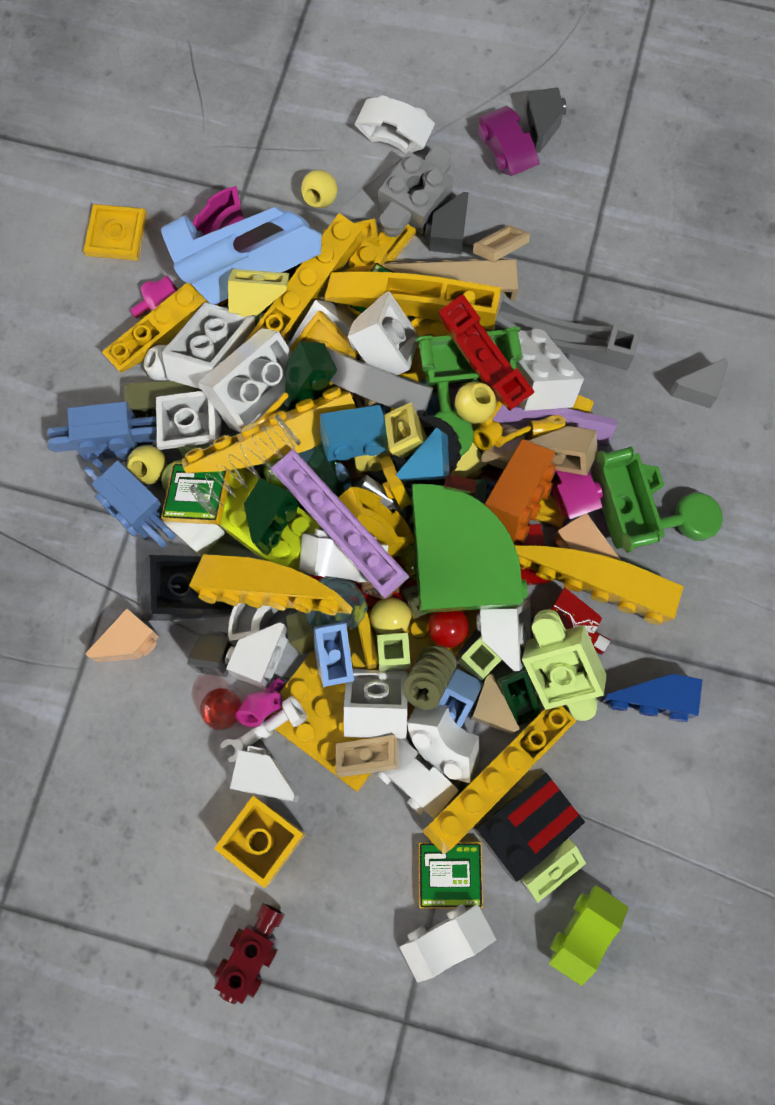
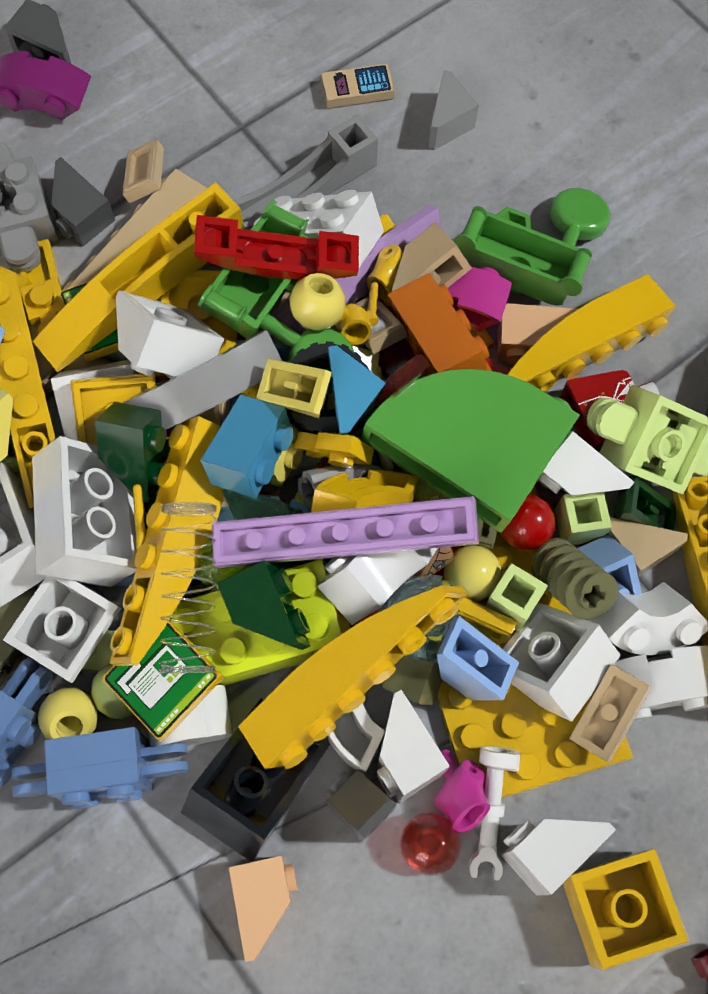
camera: 55 degrees left, 5 degrees down
(675, 316) = (357, 85): none -> tile

